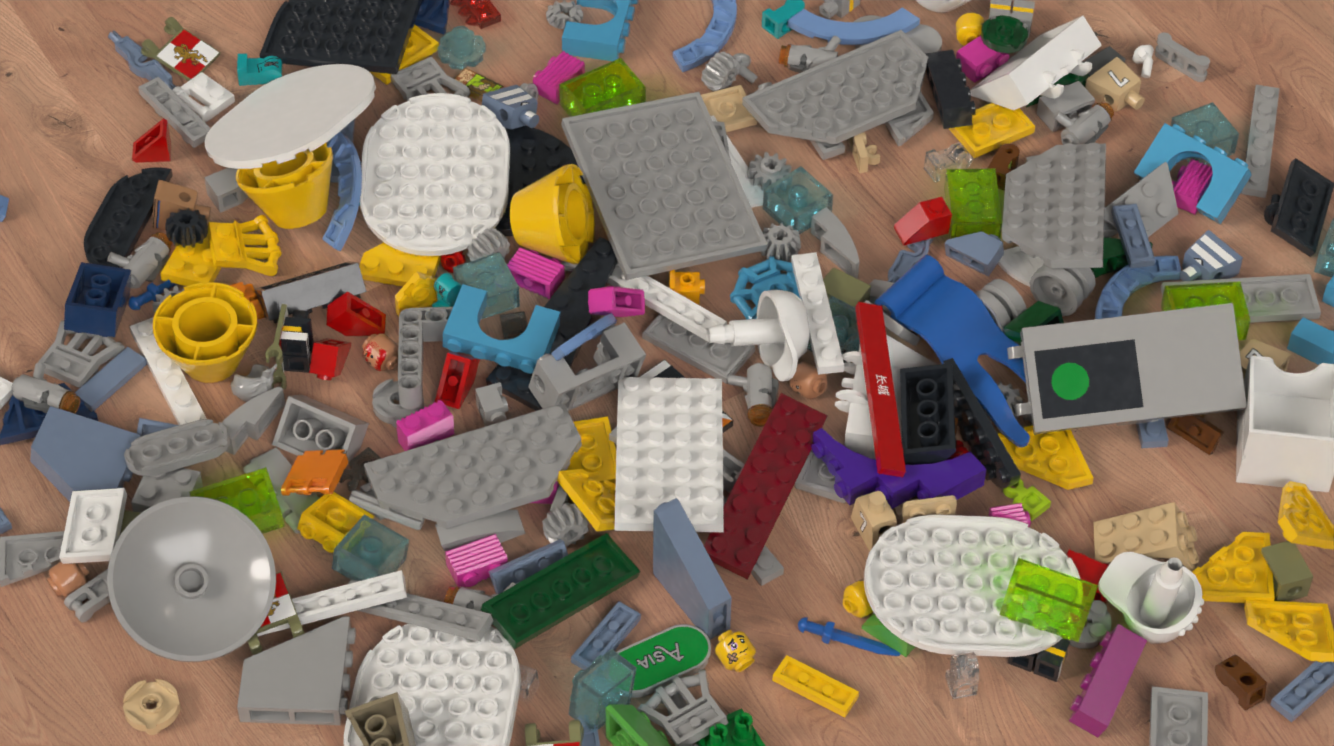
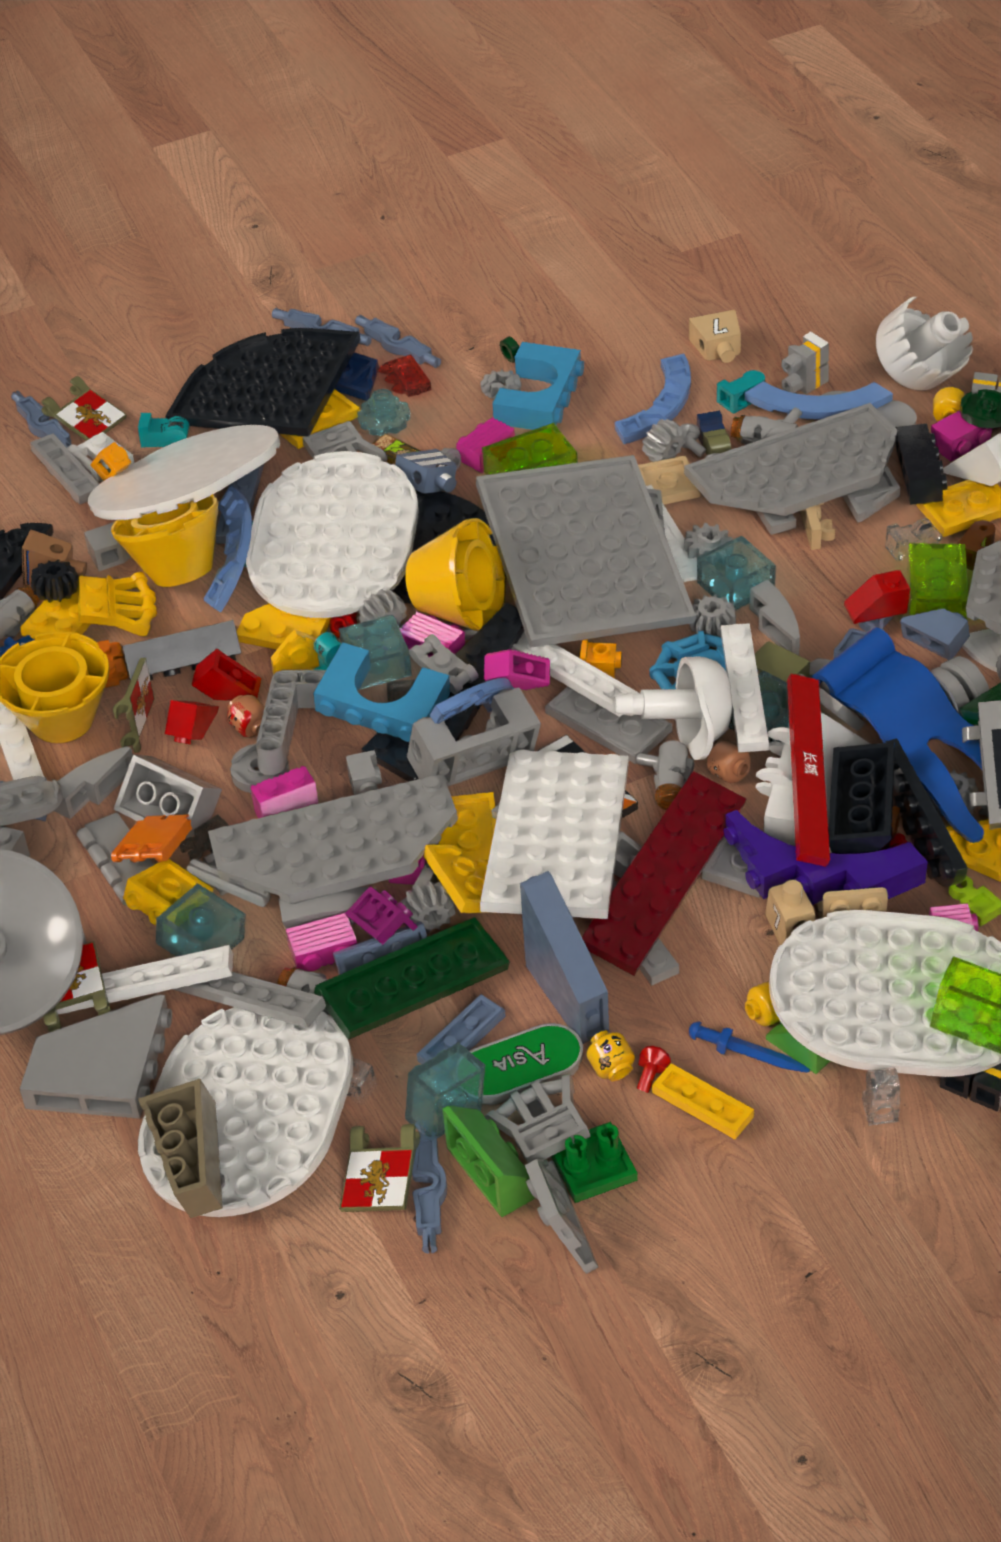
camera: 10 degrees right, 5 degrees down
(153, 145) = (39, 501): red slope -> none
(222, 102) = (114, 457): none -> light orange brick
(250, 495) = (76, 861): clear neon green brick -> none
(253, 384) = (95, 745): light grey hat -> none
(297, 342) = (153, 700): black hips -> none
(456, 378) = (328, 746): red slope -> none
(526, 536) = (379, 914): none -> magenta bracket
(551, 297) = (443, 662): none -> light grey plate
(763, 62) = (713, 433): none -> leg
(772, 654) = (653, 1061): none -> red plate

